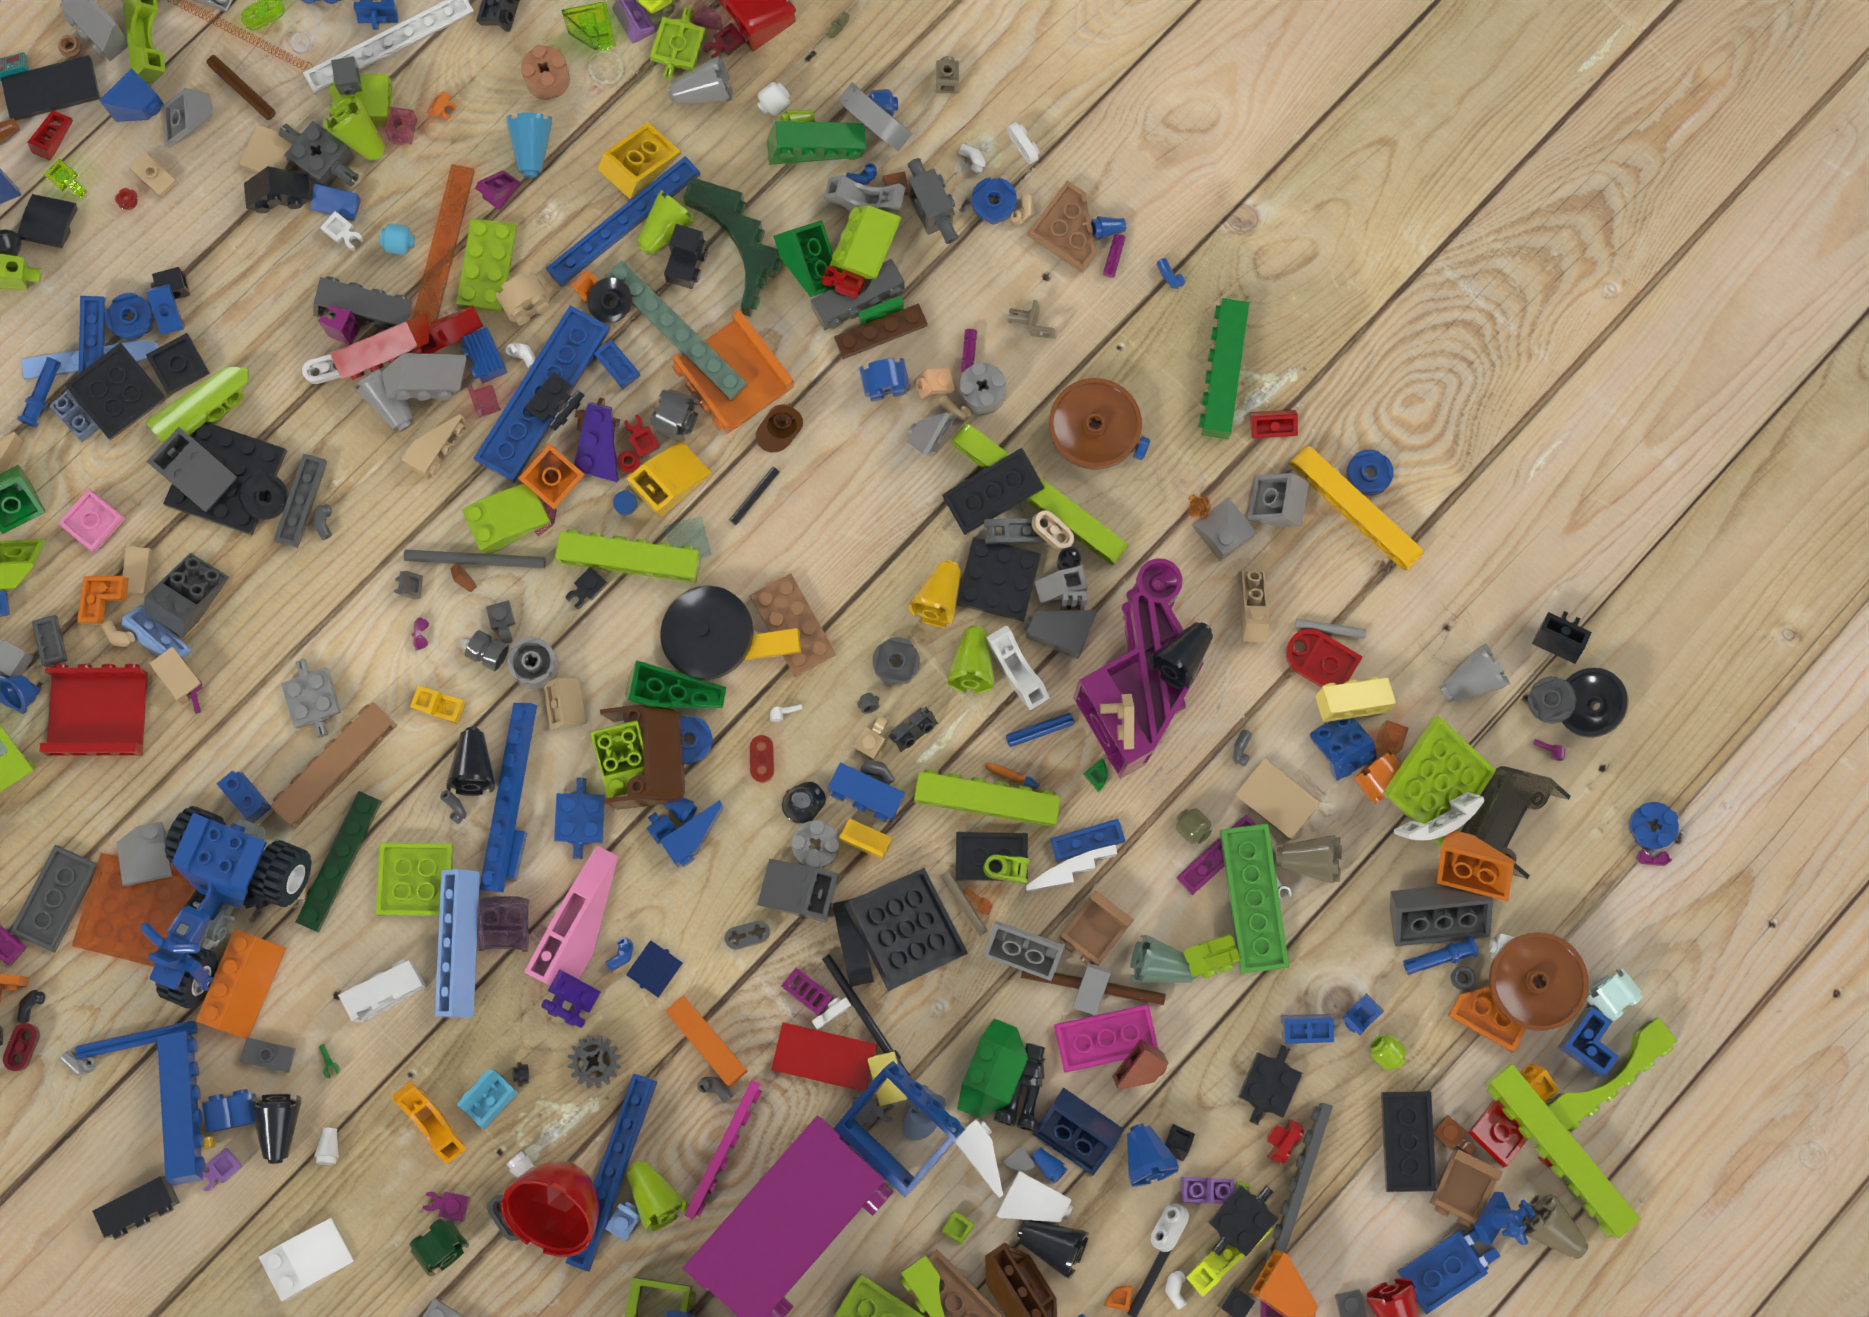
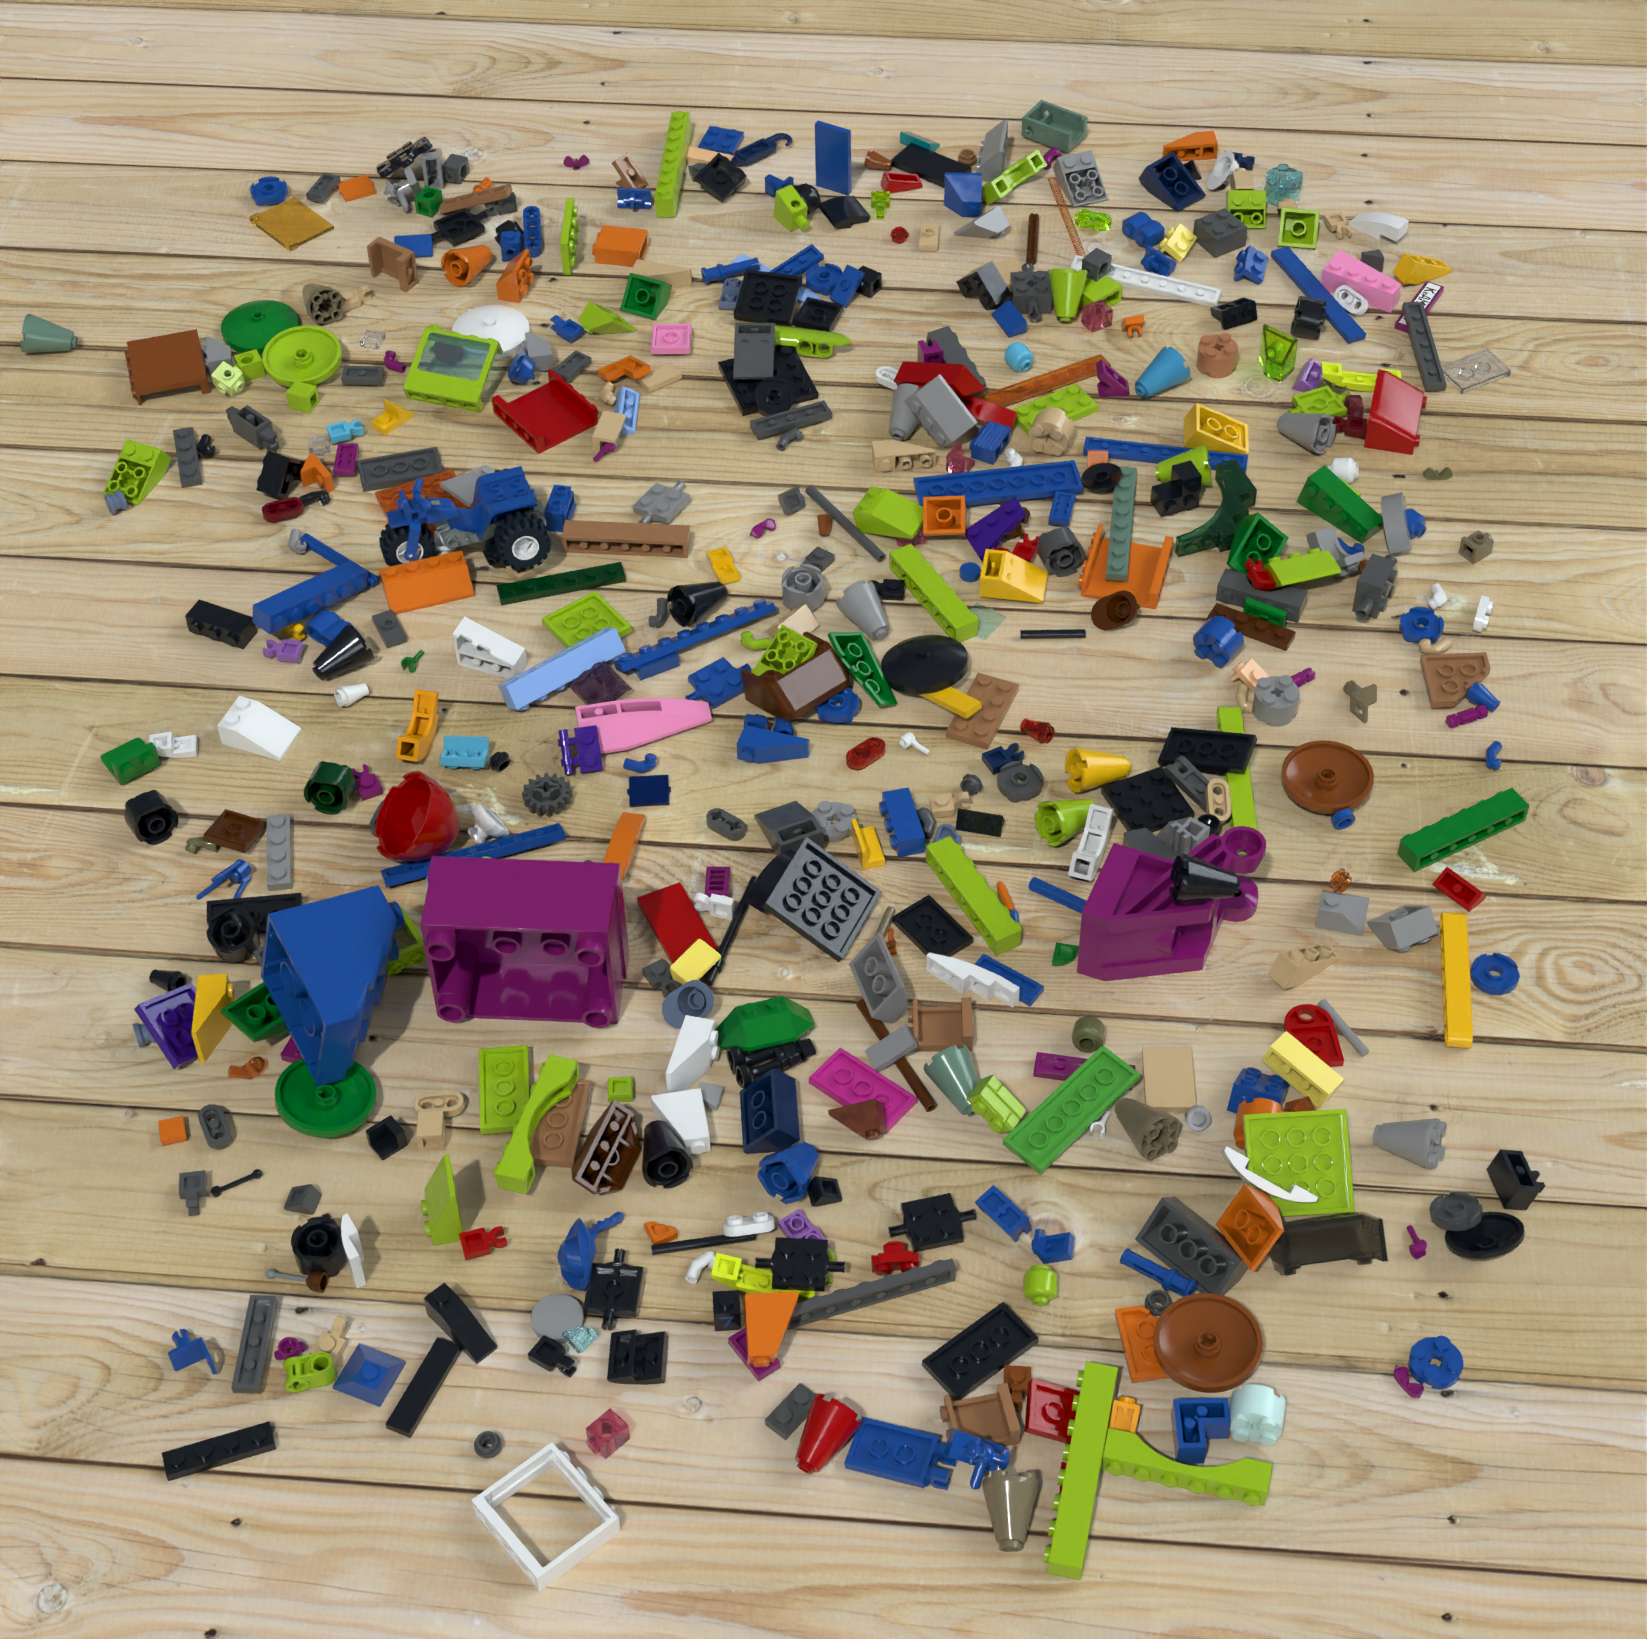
camera: 55 degrees right, 30 degrees down
(184, 594) = (667, 405): dark grey slope -> none
(340, 229) = (993, 332): white plate -> none
(485, 650) = (784, 556): dark grey wheel -> none
(550, 397) = (997, 488): black plate -> none
(557, 752) = (754, 644): none -> lime arm
(592, 1137) = (487, 825): none -> white hair
(607, 633) = (864, 609): none -> light grey cone
(803, 802) = (858, 794): black hat -> none
(854, 601) = (1040, 731): none -> clear red cone
(860, 658) = (999, 757): none -> dark blue plate
(874, 1152) = (626, 1013): blue window -> none
(906, 767) = (947, 830): none -> sand blue tile
(930, 432) = (1212, 689): light grey slope -> none
(1009, 868) = (931, 933): lime piece -> none
(1049, 1165) = (724, 1116): blue cone -> none
(1125, 712) = (1112, 874): tan plate -> none
(1239, 747) = (1176, 1031): dark grey arm -> none
(1330, 810) = (1197, 1118): none -> light grey tile

